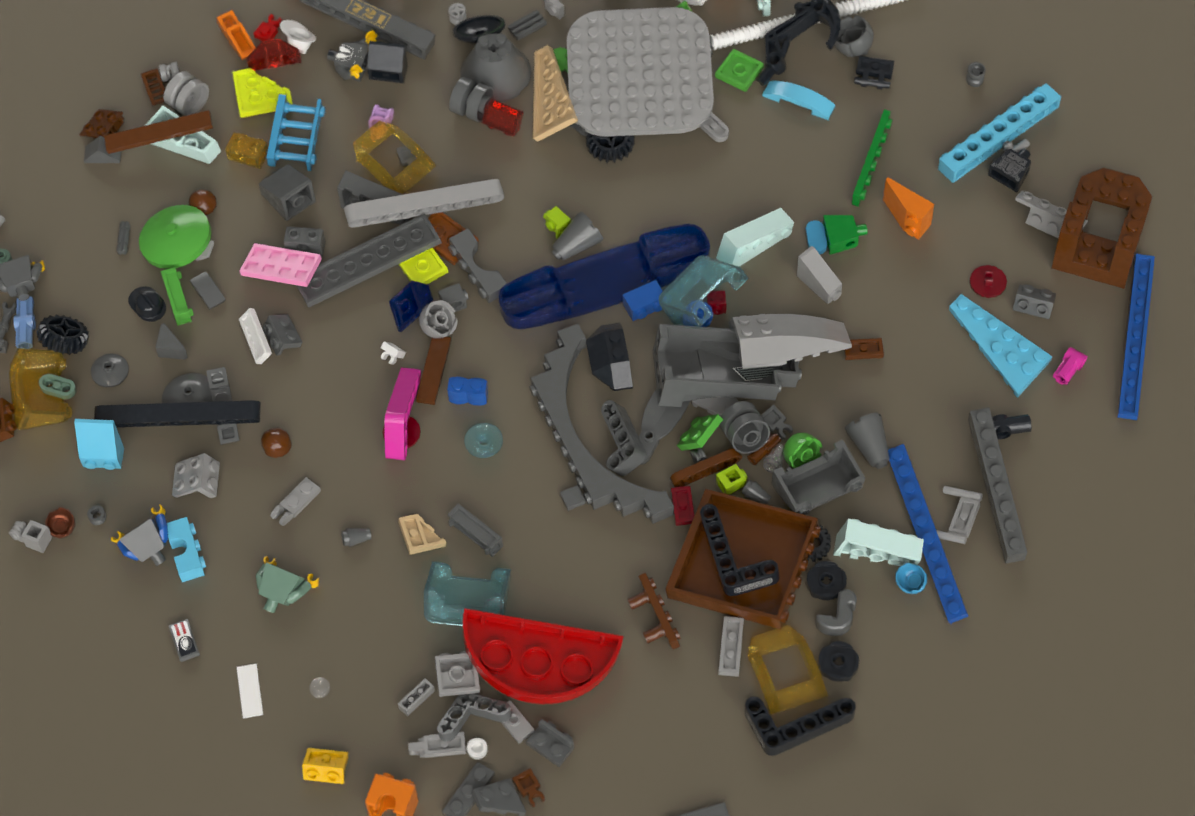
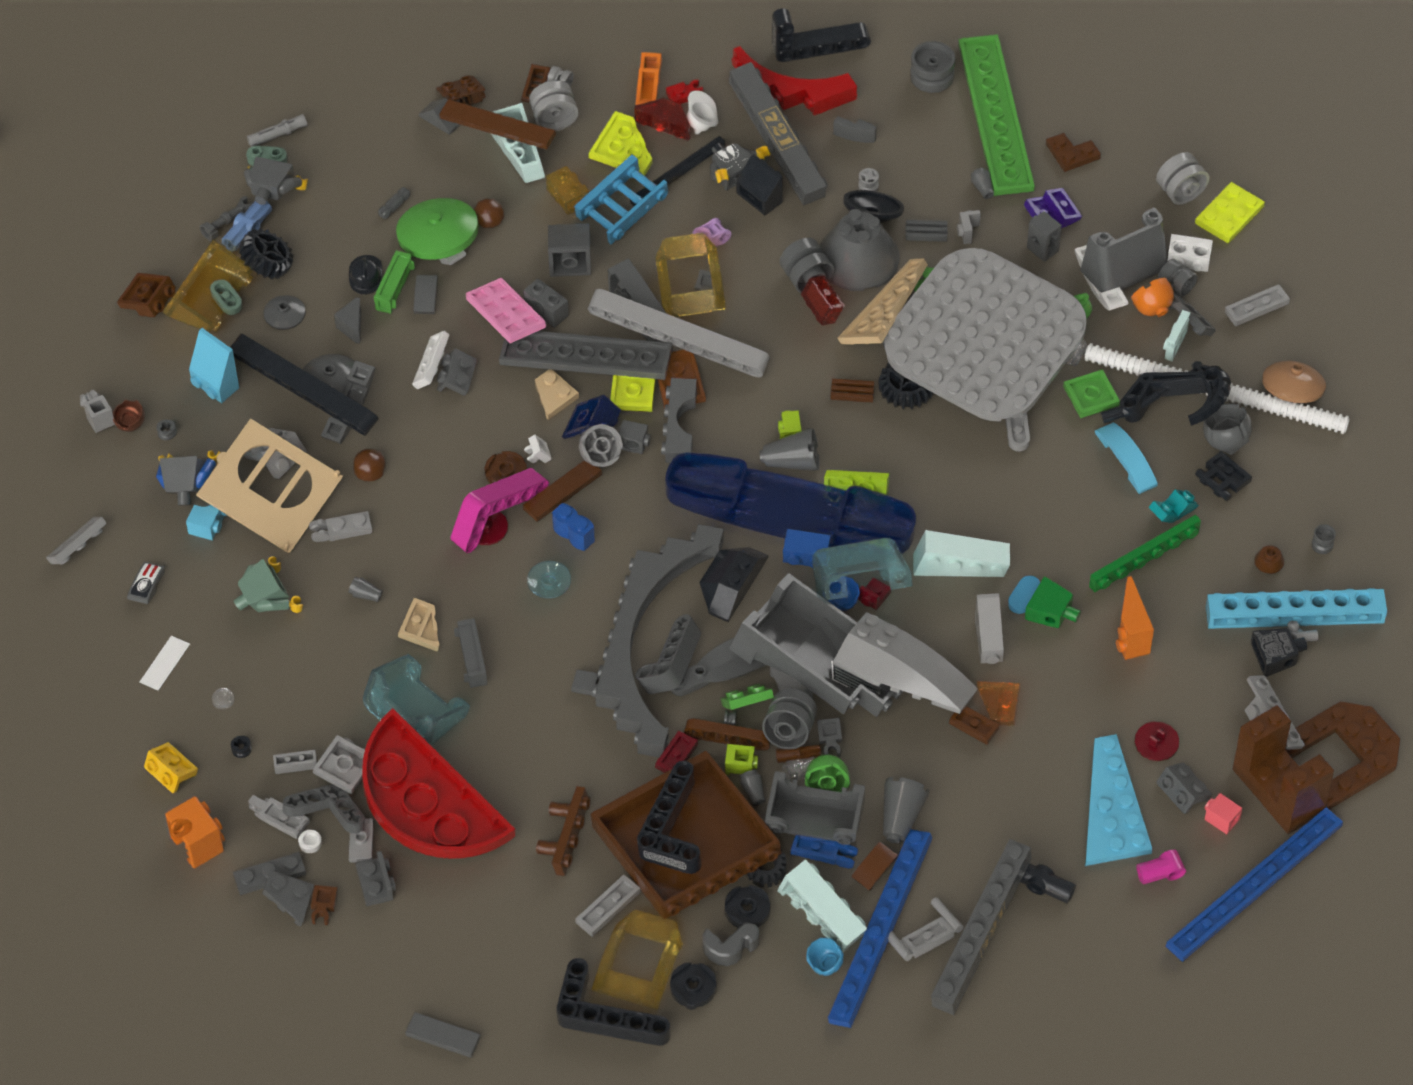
camera: 35 degrees right, 5 degrees down
(102, 644) = (76, 541): none -> light grey plate
(200, 532) = (267, 519): none -> tan door
(315, 84) = (684, 166): none -> black axle
(364, 707) = (241, 753): none -> black bush
(365, 302) = (554, 393): none -> tan wing
(379, 381) = (503, 466): none -> reddish brown tile
(574, 166) = (852, 387): none -> reddish brown tile
(632, 233) = (870, 480): none -> lime wing
(841, 506) = (823, 851): none -> blue hinge
(861, 112) = (1175, 507): none -> teal slope
(866, 321) = (1000, 700): none -> clear orange wing
(886, 492) = (874, 866): none -> reddish brown slope
(952, 110) = (1269, 559): none -> reddish brown cone
(1075, 301) = (1222, 813): none -> coral brick

